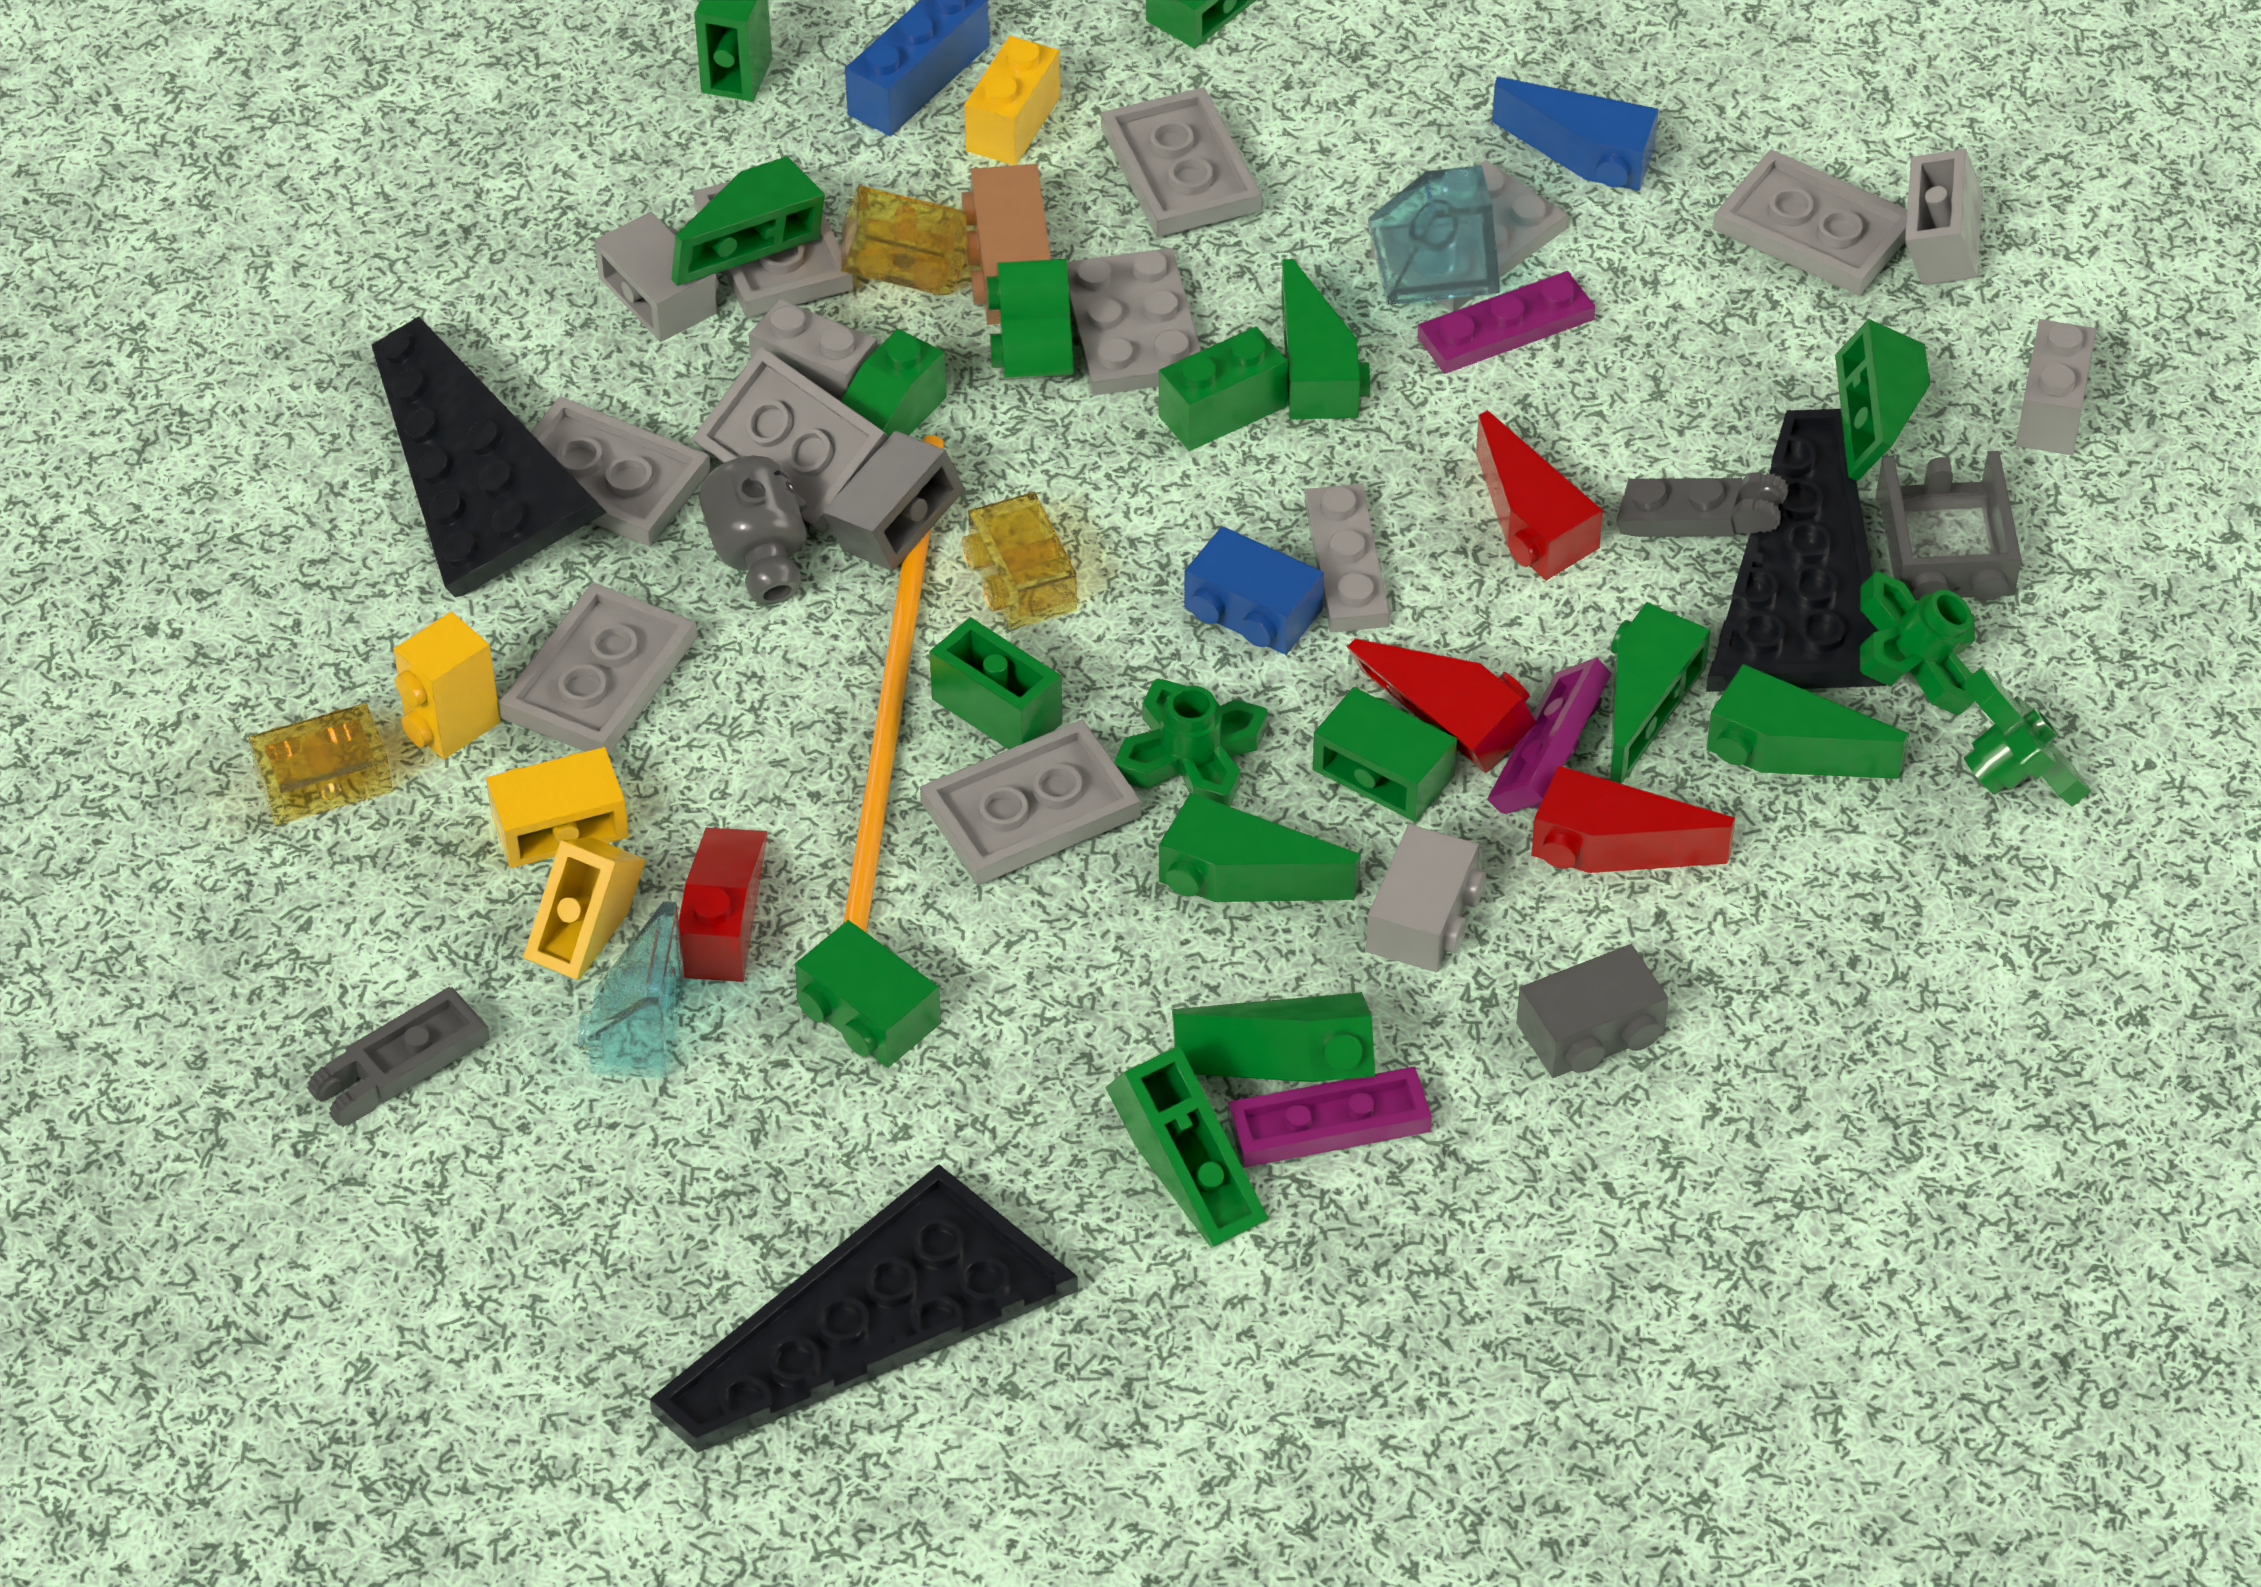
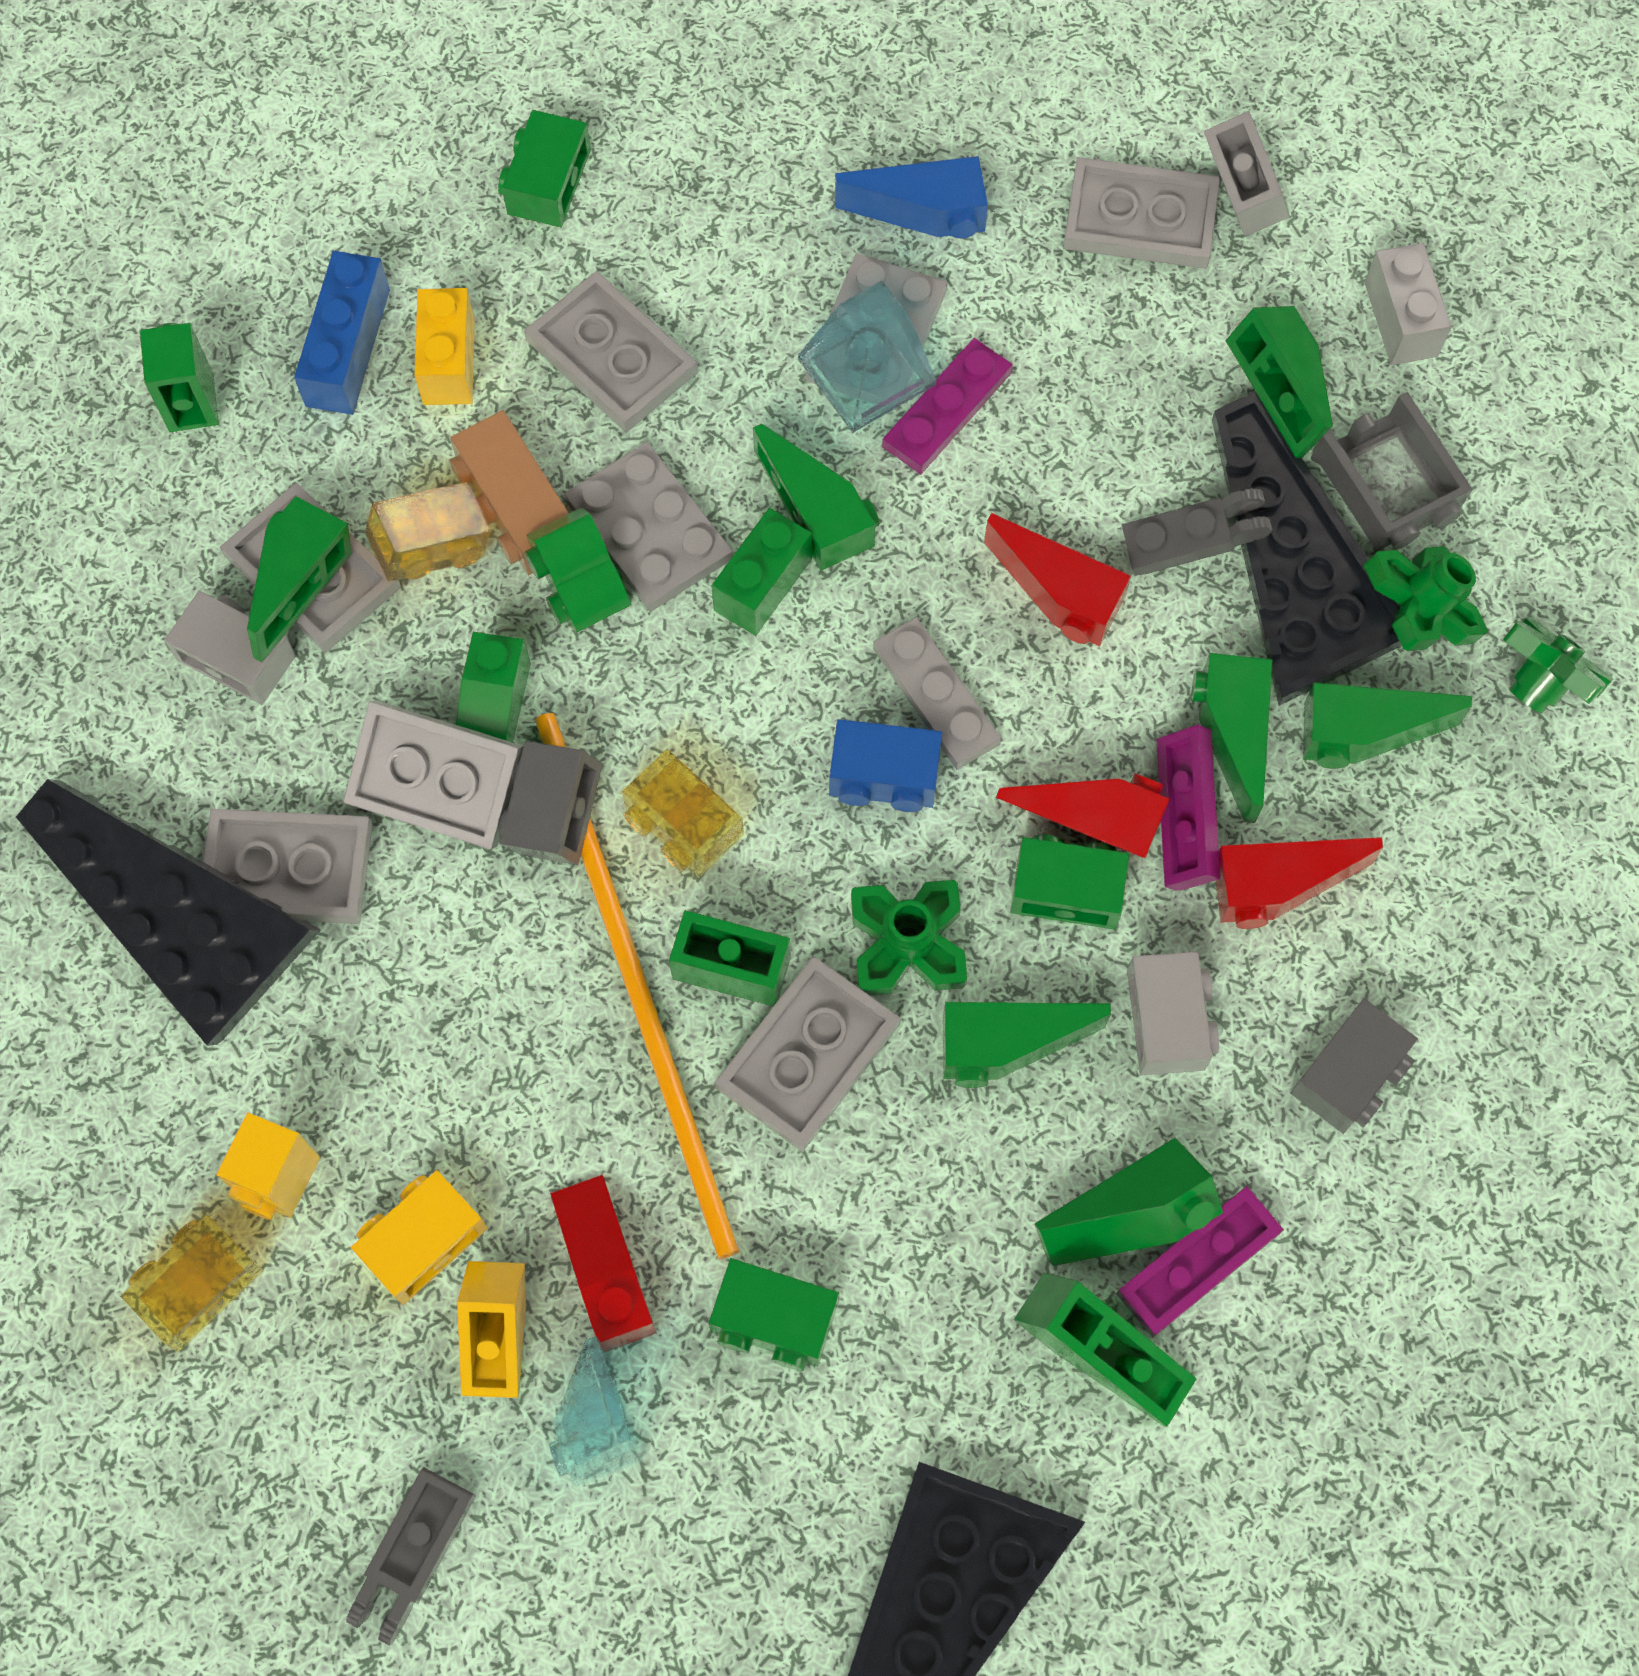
camera: 25 degrees left, 20 degrees up
(598, 669) = (382, 1076): light grey plate -> none
(756, 524) = (447, 876): dark grey piece -> none
(812, 345) = (408, 677): light grey brick -> none

